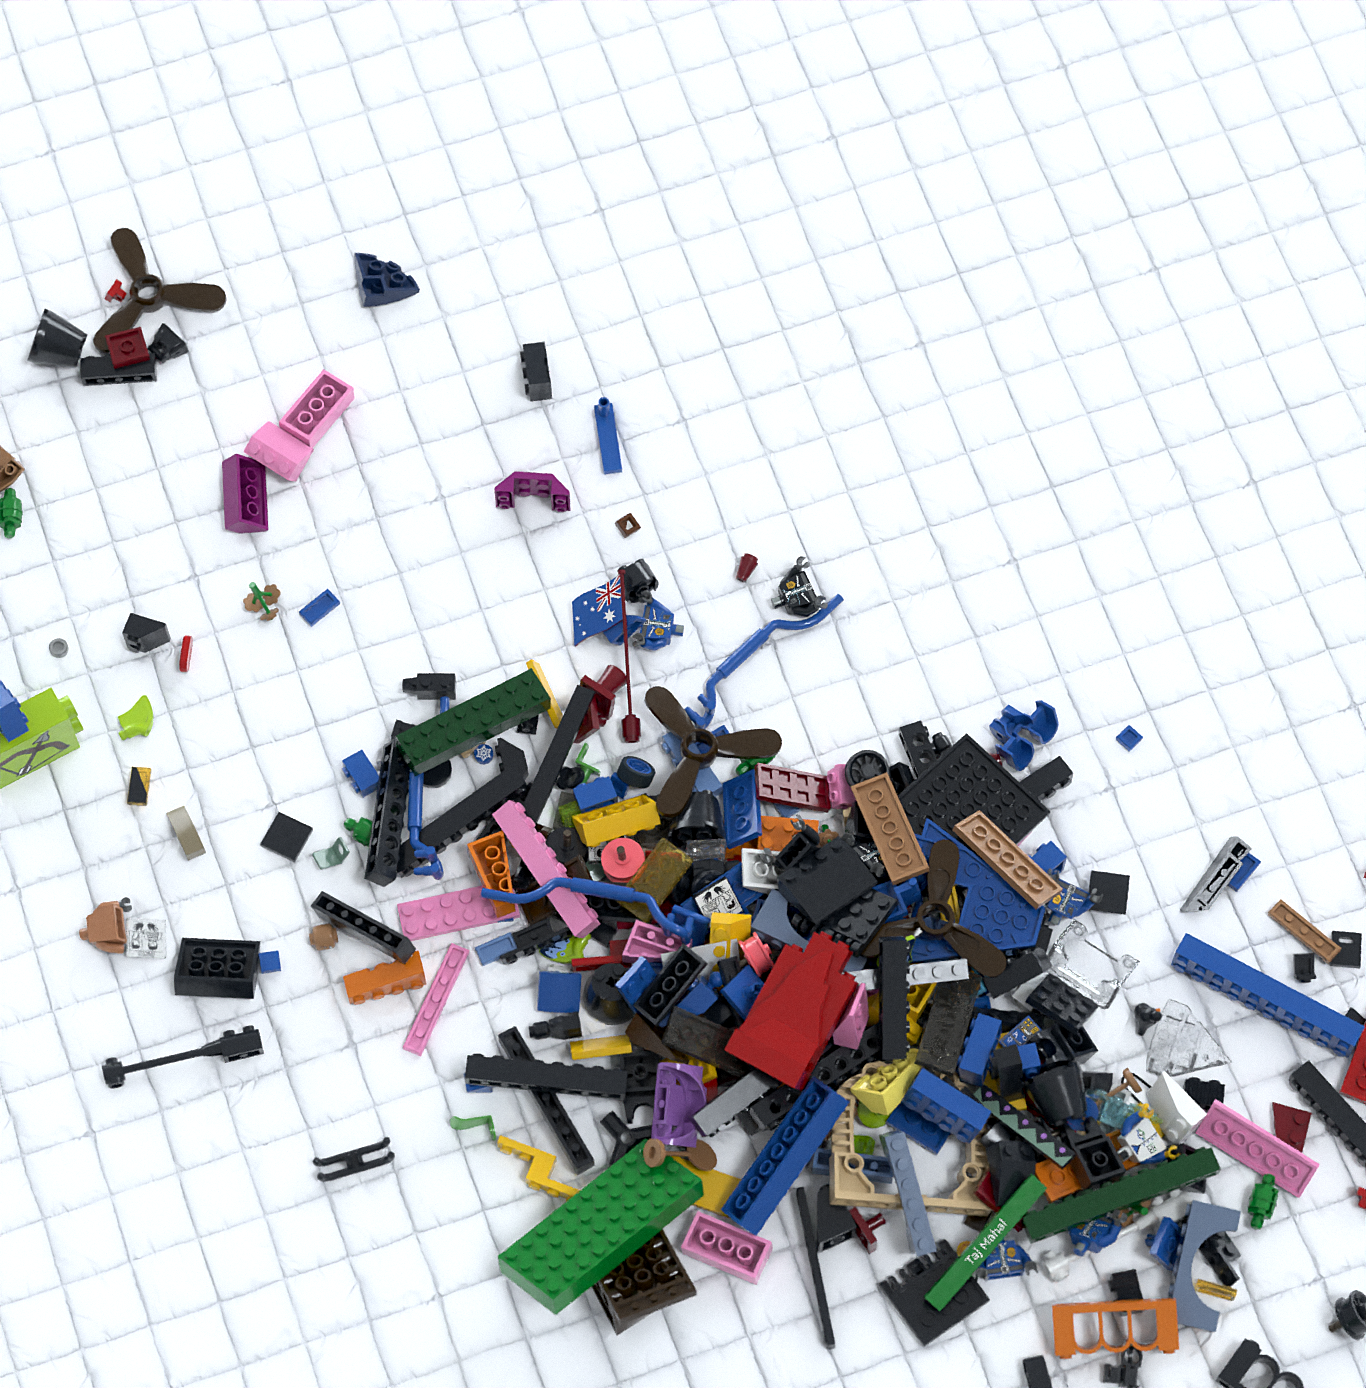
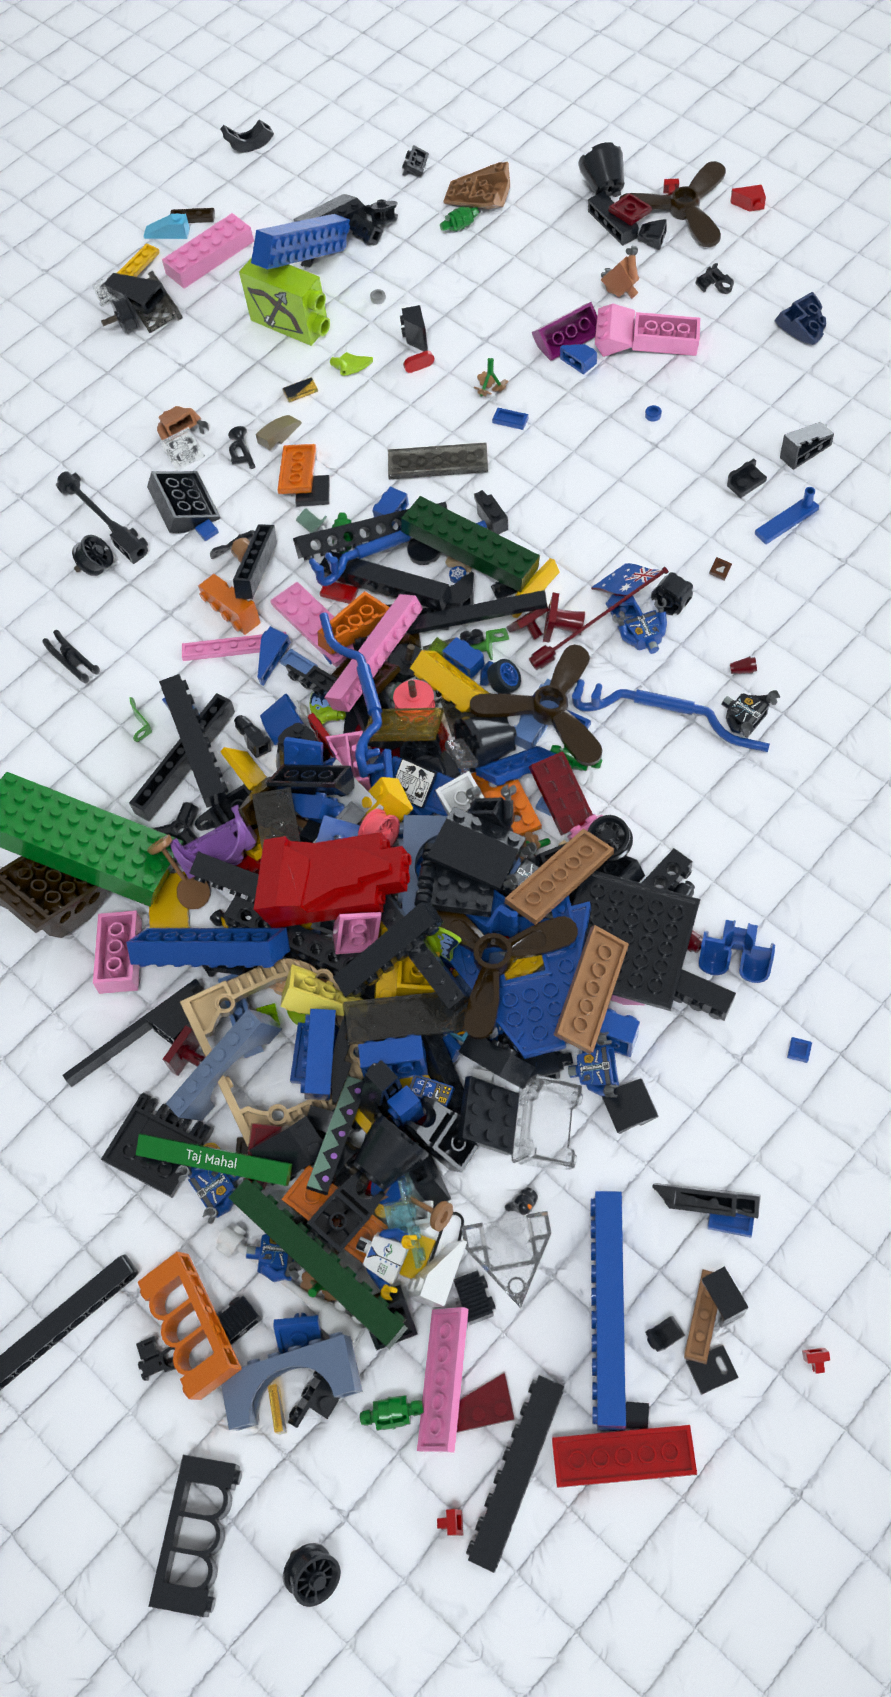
camera: 70 degrees right, 5 degrees down
(168, 874) = (238, 433): none -> black piece
(185, 231) = (749, 197): none -> red slope
(215, 408) = (623, 275): none -> nougat torso
(242, 1085) = (92, 555): none -> black wheel
(251, 838) = (297, 469): none -> orange tile
(282, 323) = (712, 276): none -> black piece
(287, 503) = (579, 357): none -> blue slope
(311, 957) = (217, 551): none -> black piece
(330, 701) = (437, 460): none -> clear smoke plate
(402, 477) = (653, 413): none -> blue tile
(427, 882) = (339, 592): none -> red tile
(472, 965) = (272, 648): none -> blue slope
(532, 484) = (695, 476): magenta slope -> none
(540, 445) = (745, 478): none -> black bracket
(540, 1169) = (124, 783): yellow bracket -> none
(740, 1144) = (218, 918): none -> black hinge
(1303, 903) = (725, 1296): none -> black panel

